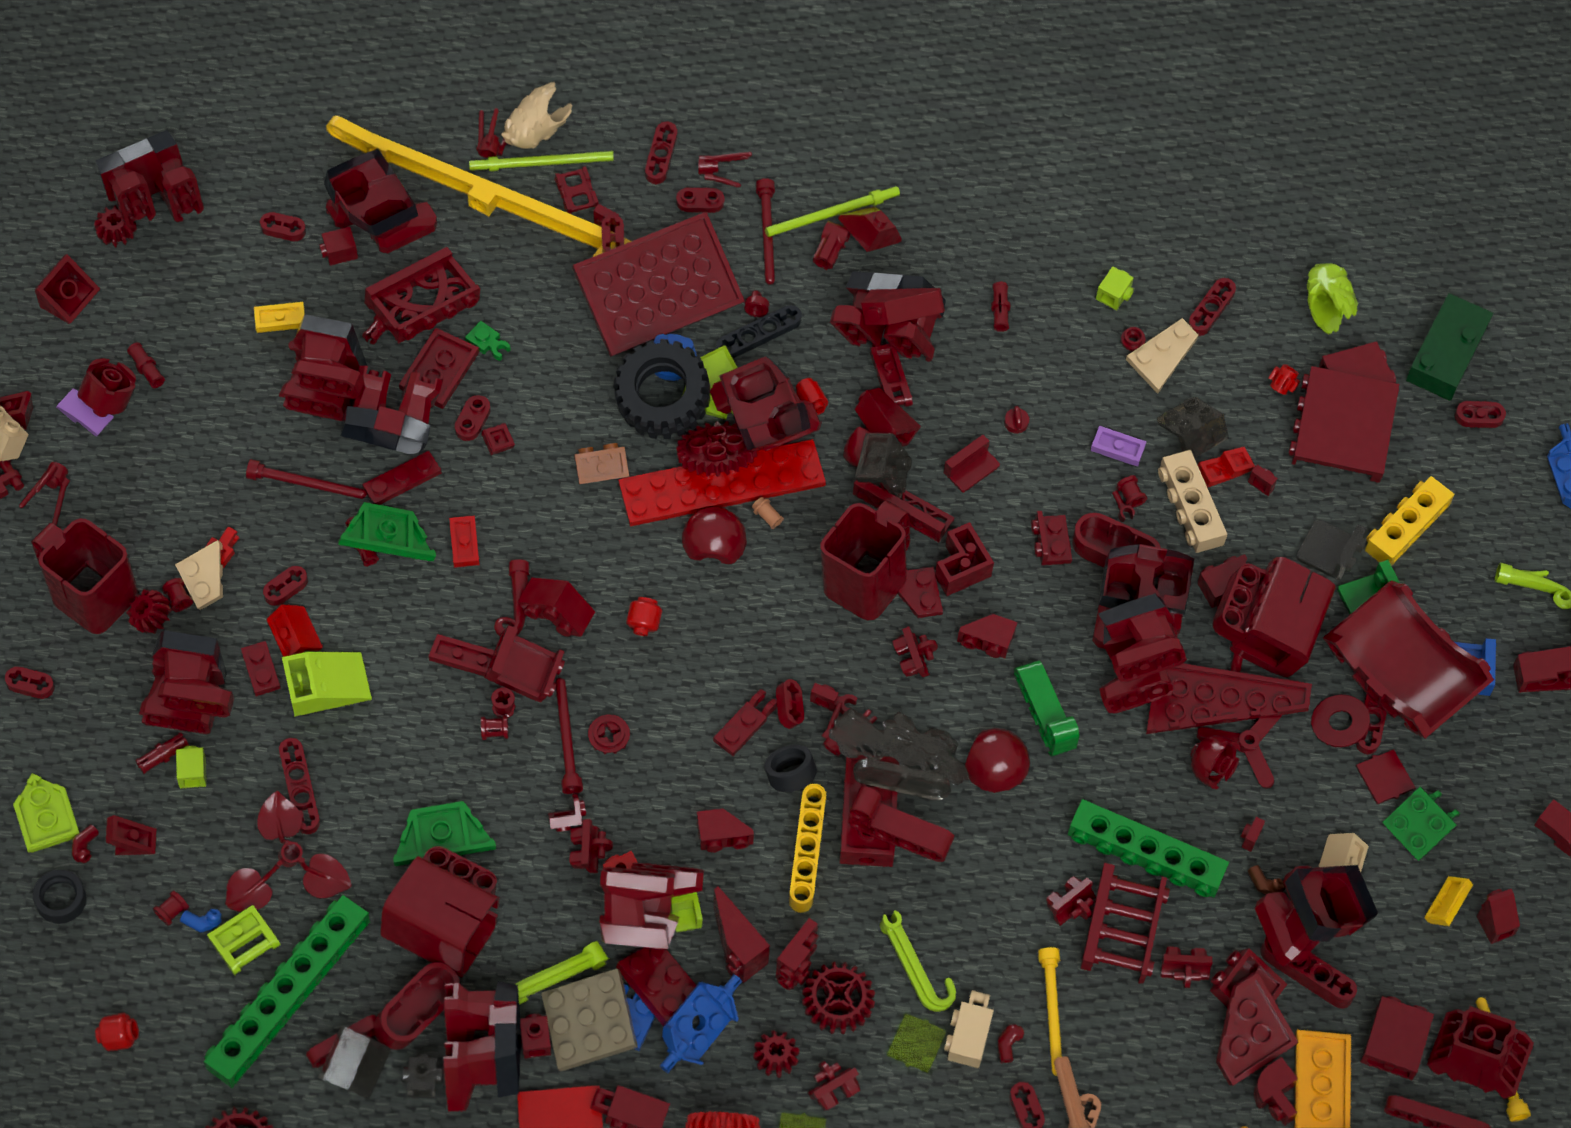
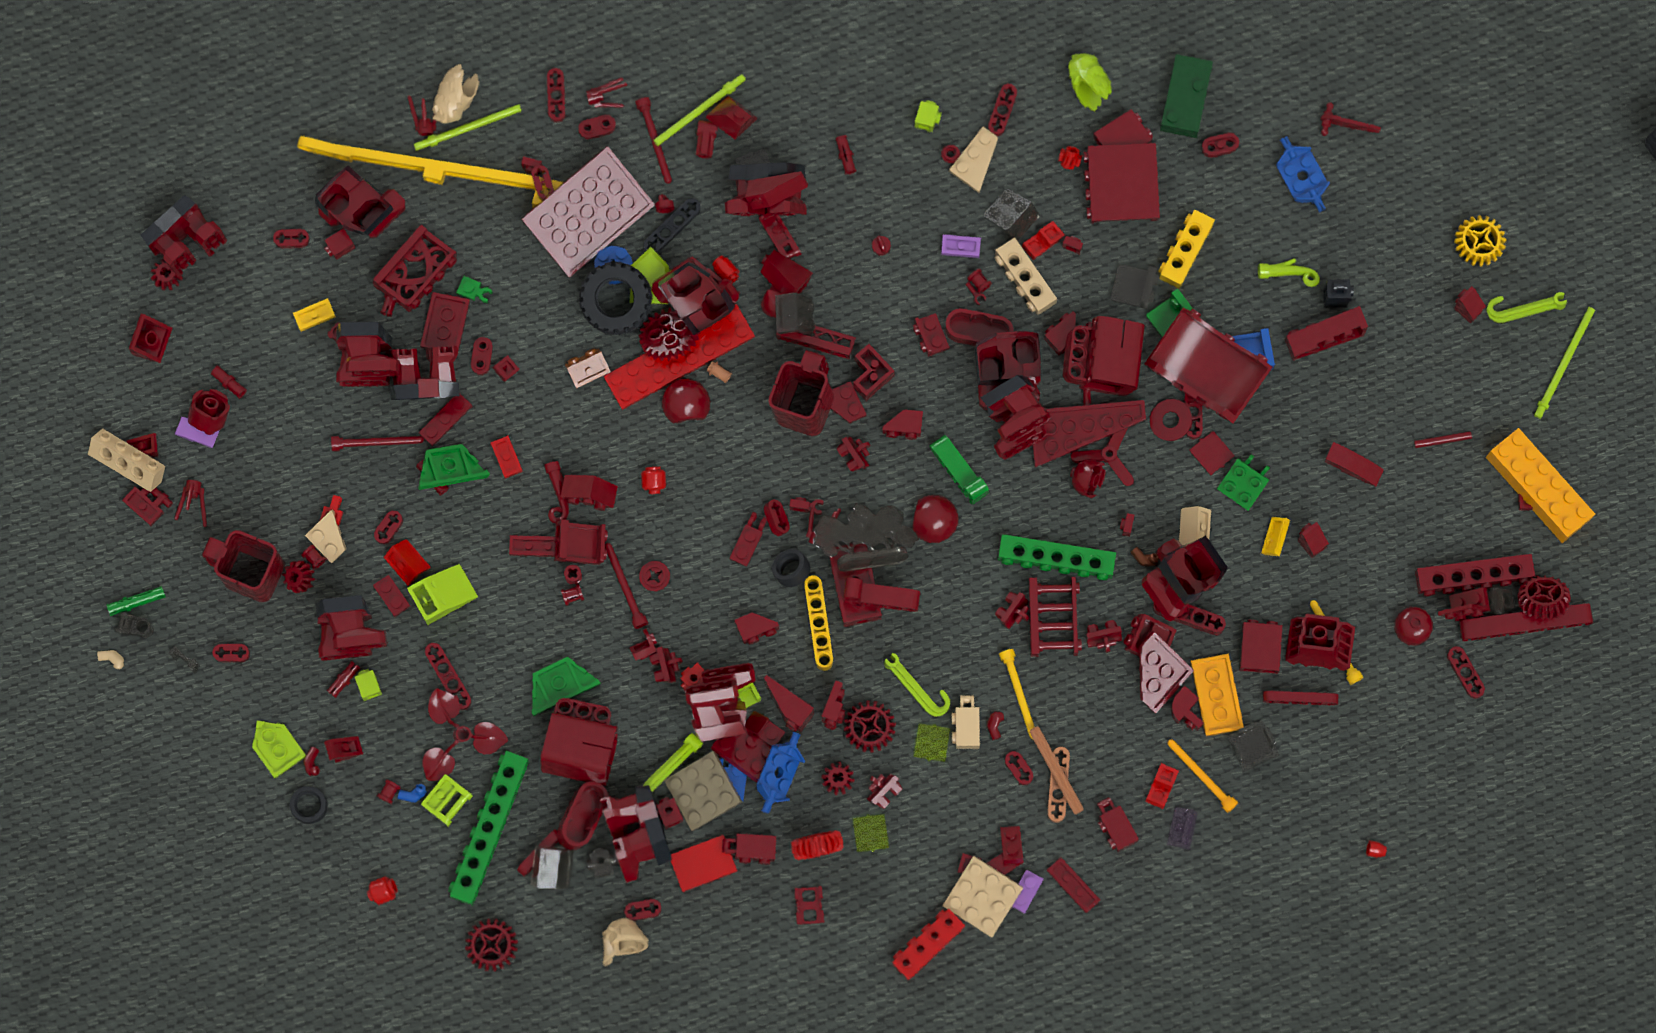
camera: 10 degrees left, 15 degrees up
(569, 192) = (497, 148): dark red piece -> none
(693, 960) = (764, 729): none -> dark red slope
(971, 464) = (857, 292): dark red panel -> none

